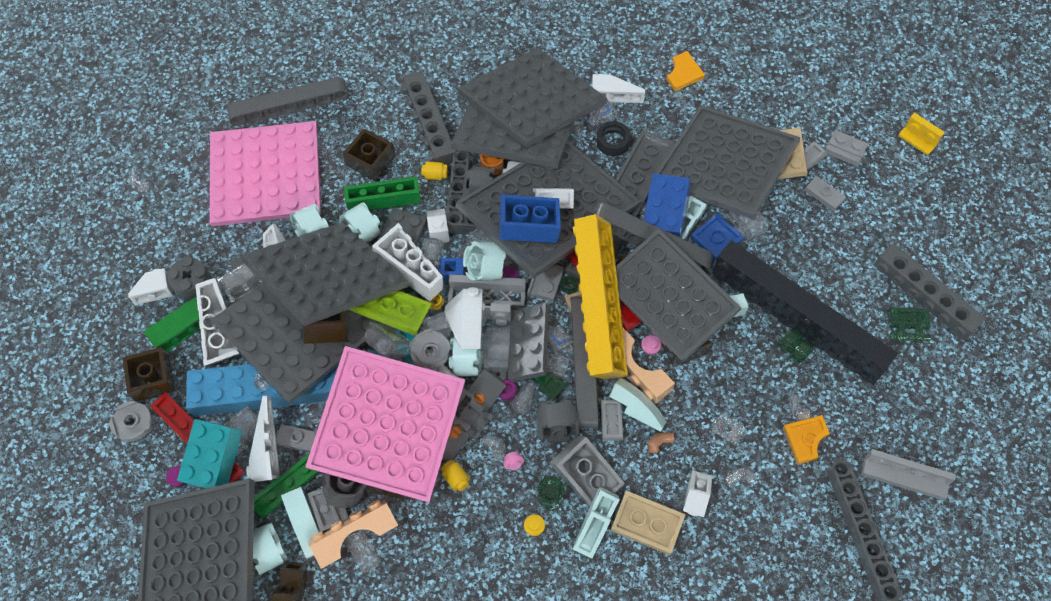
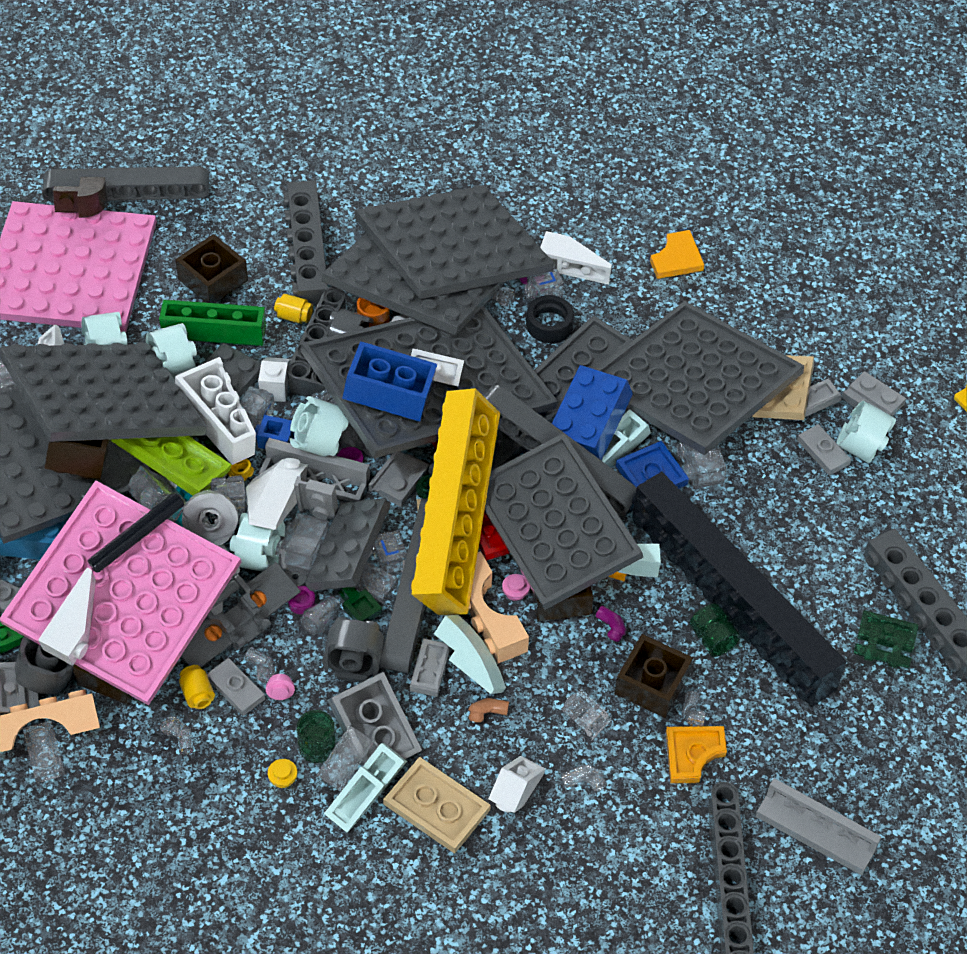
camera: 10 degrees right, 10 degrees down
(263, 121) = (85, 200): none -> dark brown brick
(360, 463) = (70, 628): none -> white slope
(385, 379) = (135, 532): none -> black axle
(453, 510) = (175, 726): none -> clear arm
(481, 467) = (235, 687): none -> light grey plate
(577, 506) = (345, 757): none -> clear brick
(726, 355) = (614, 621): none -> magenta arm
(766, 390) = (653, 675): none -> dark brown brick
(852, 175) = (865, 431): none -> light aqua brick

